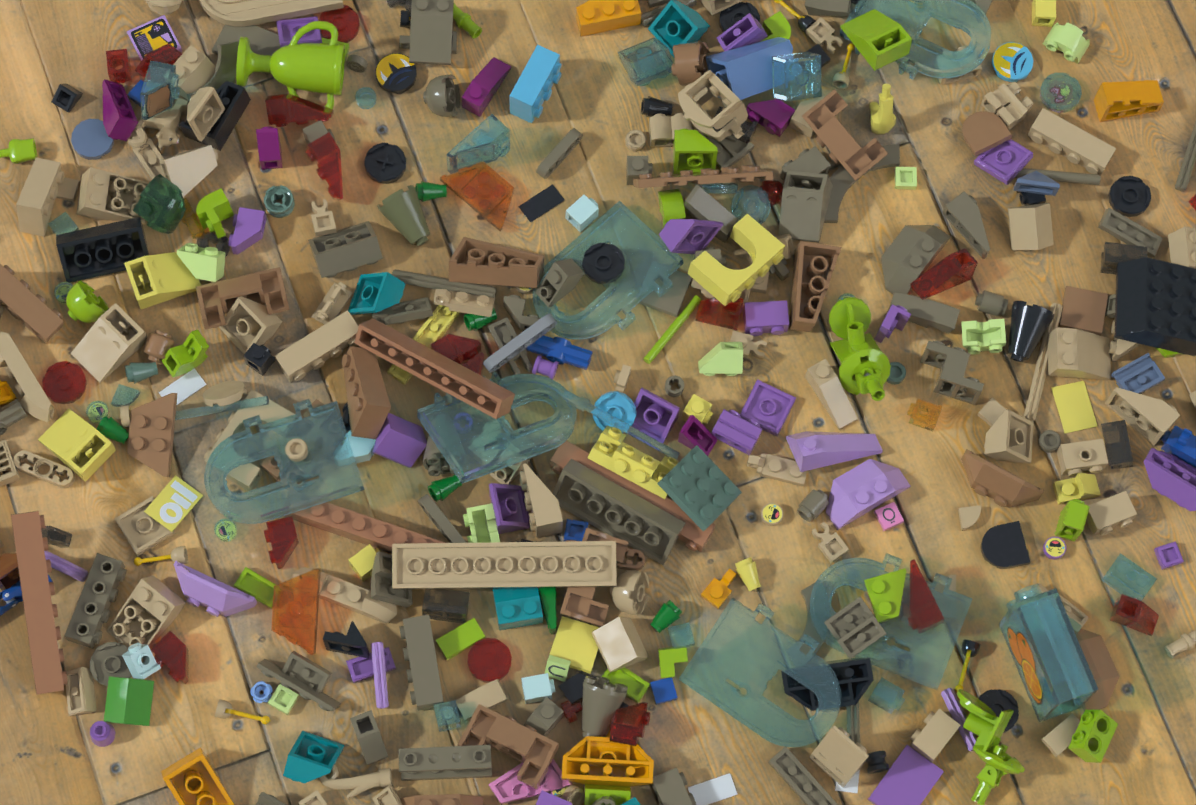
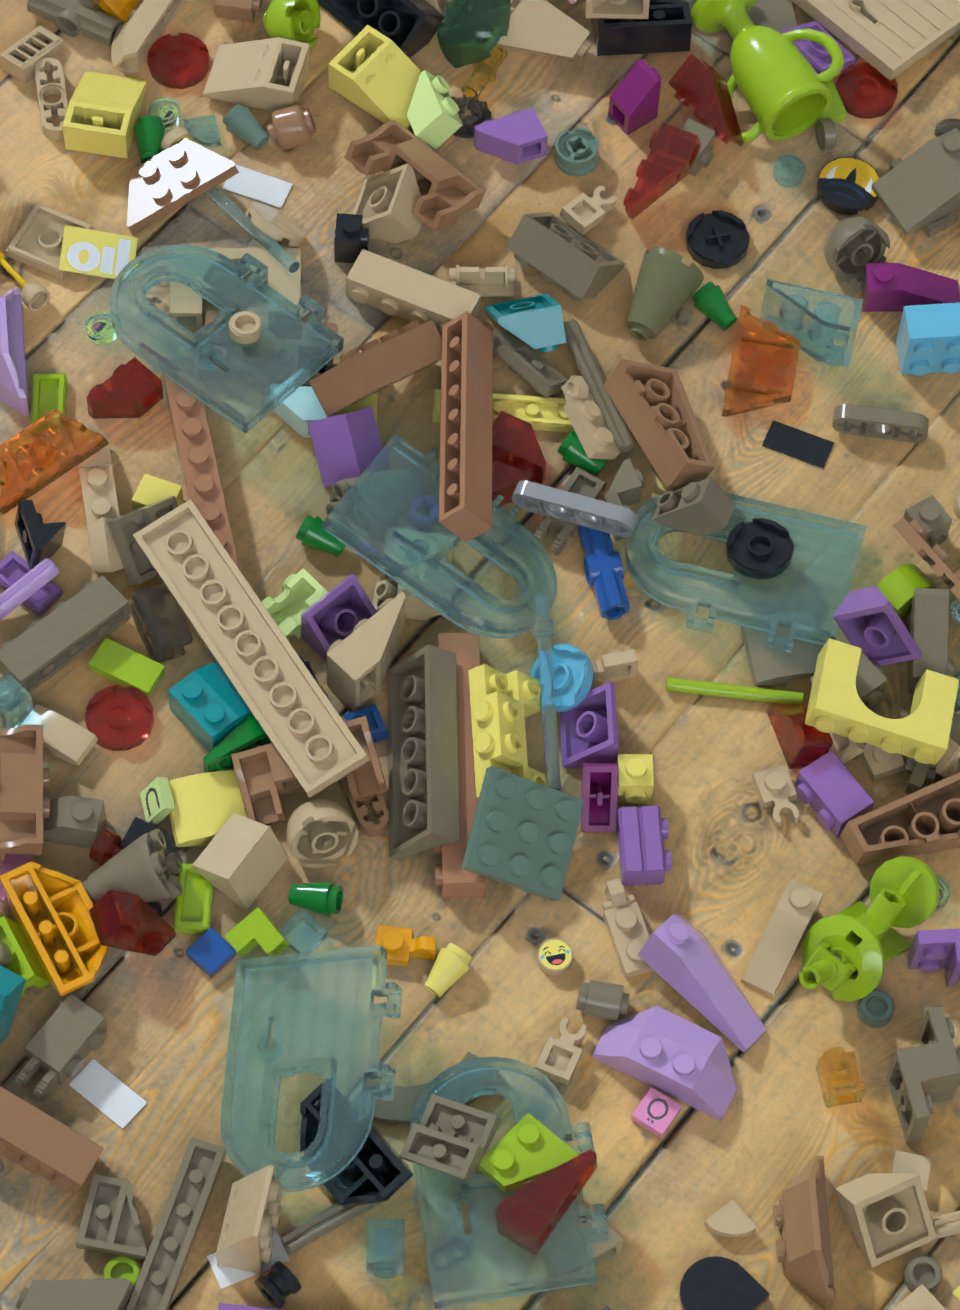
camera: 60 degrees right, 10 degrees down
(186, 356) = (298, 162): lime brick -> none
(213, 210) = (508, 85): lime brick -> none
(440, 520) = (272, 555): dark tan beam -> none
(537, 688) = (117, 790): light aqua brick -> none
(545, 367) = (568, 565): medium lavender bush -> none
(582, 212) = (818, 492): light aqua brick -> none
(672, 379) = (652, 746): dark tan bush -> none
(723, 359) = (736, 774): yellowish green slope -> none
(768, 407) = (706, 870): medium lavender tile -> none

